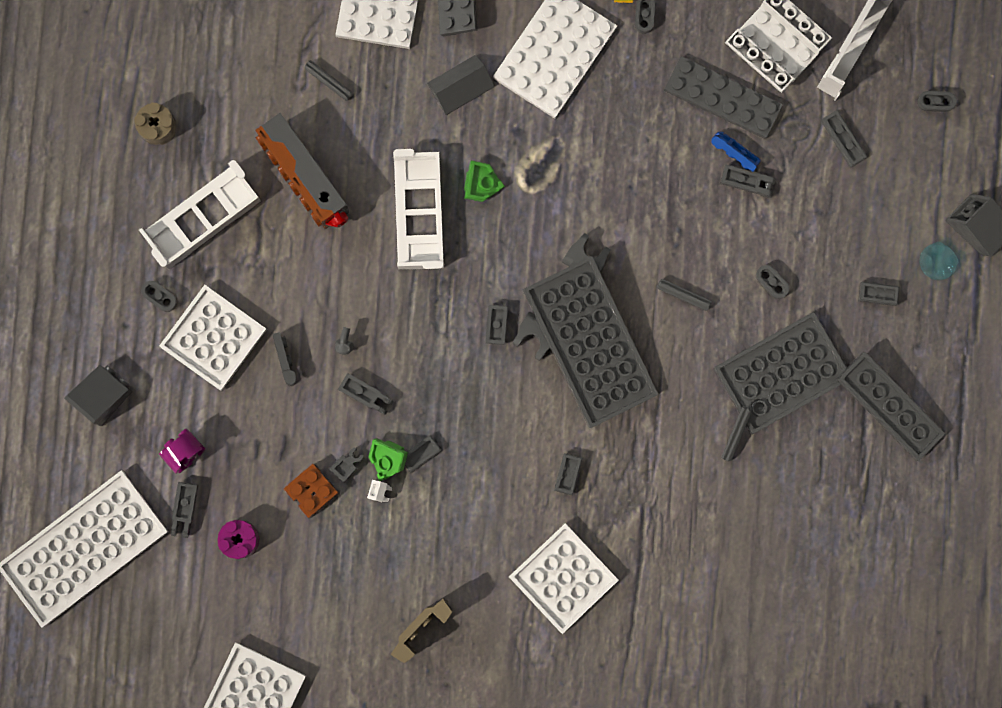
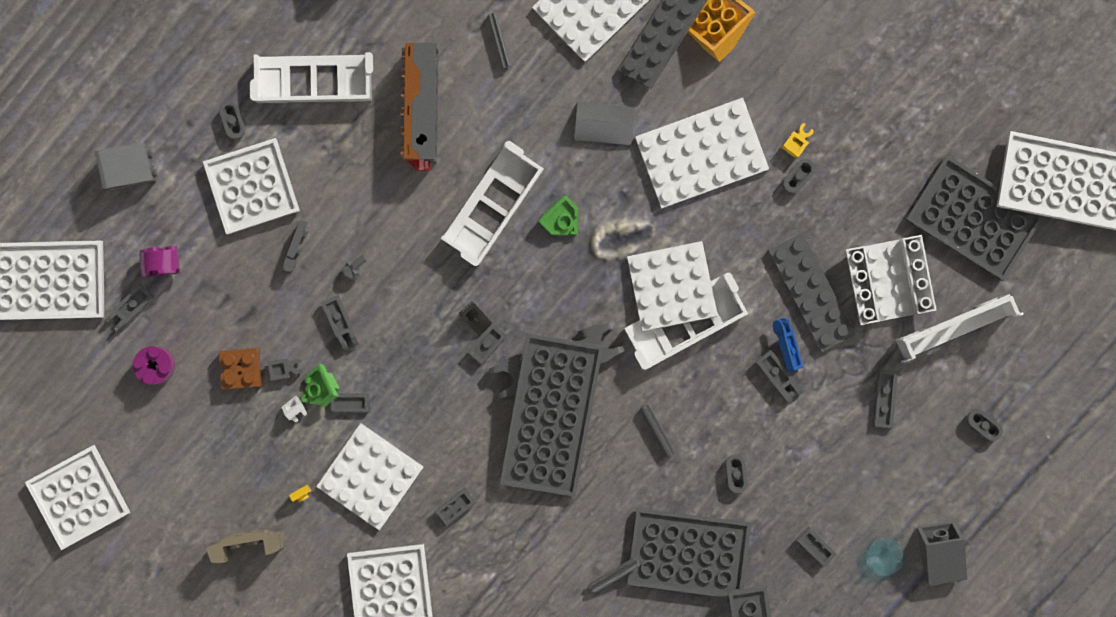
camera: 35 degrees right, 5 degrees up
(435, 556) = (300, 494): none -> yellow plate
(471, 311) = (475, 318): none -> clear smoke slope
(481, 501) = (370, 476): none -> white plate
(610, 172) = (672, 286): none -> white plate
(654, 155) = (654, 346): none -> white piece

